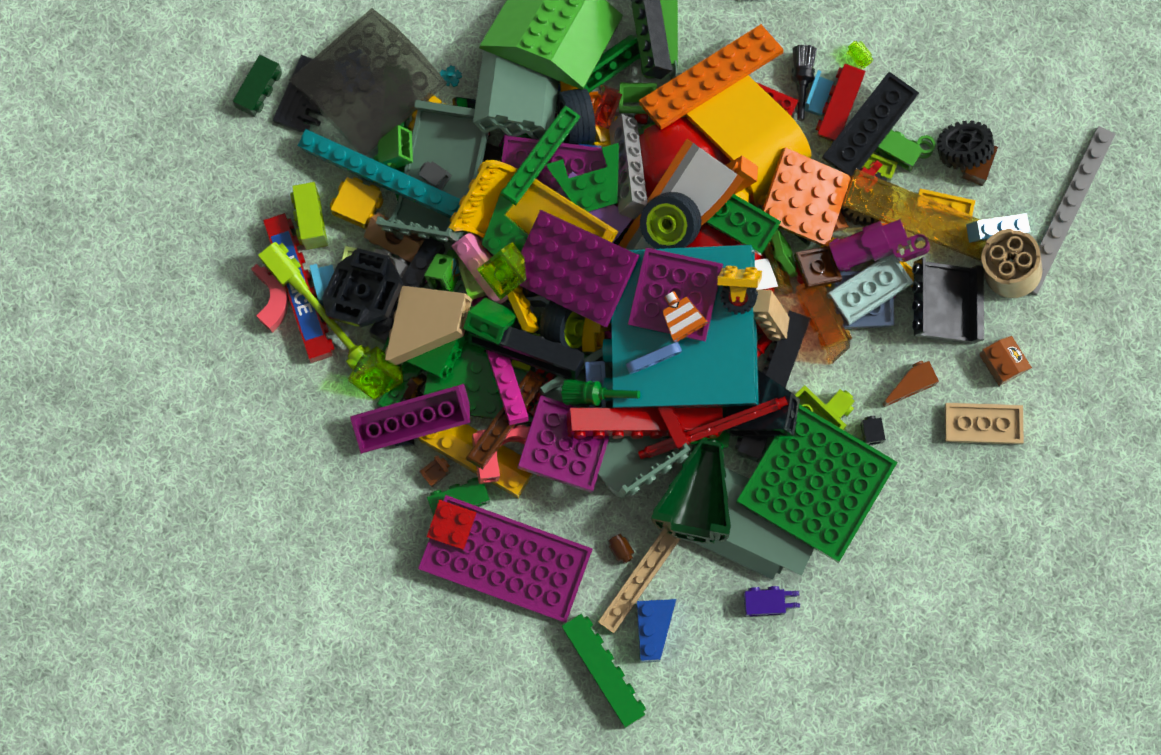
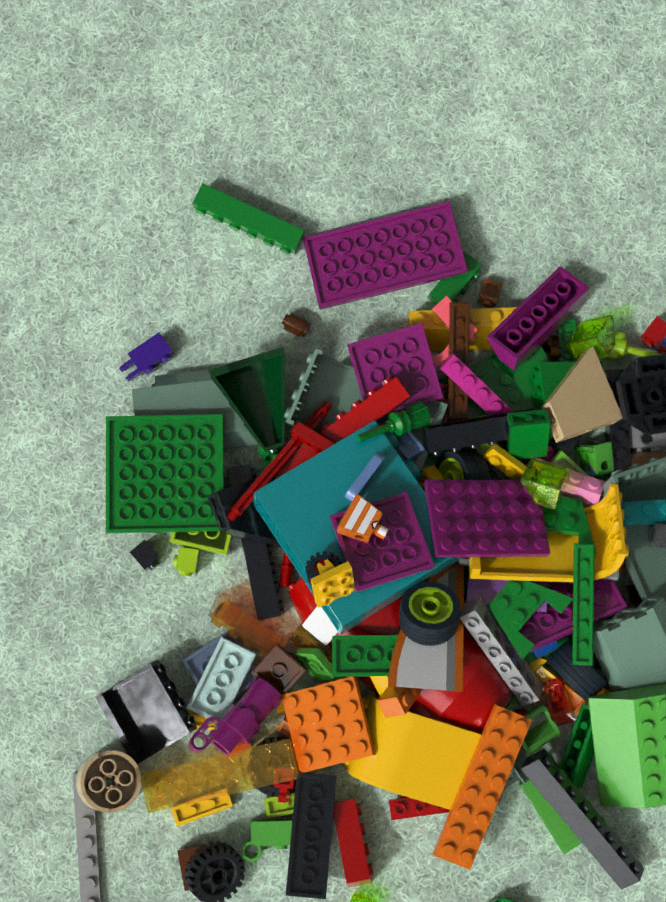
camera: 145 degrees right, 5 degrees up
(451, 524) = (445, 249): red plate -> none
(638, 581) = (265, 303): tan plate -> none
(653, 626) = (230, 277): blue wedge -> none
(771, 315) = (290, 588): tan brick -> none
(803, 73) = (403, 850): black piece -> none
(818, 95) = (377, 840): medium azure panel -> none
(916, 380) = (135, 622): dark orange slope -> none
(984, 229) = (141, 810): brick -> none
(984, 423) = (54, 623): tan plate -> none
(1005, 360) = (66, 693): dark orange slope -> none

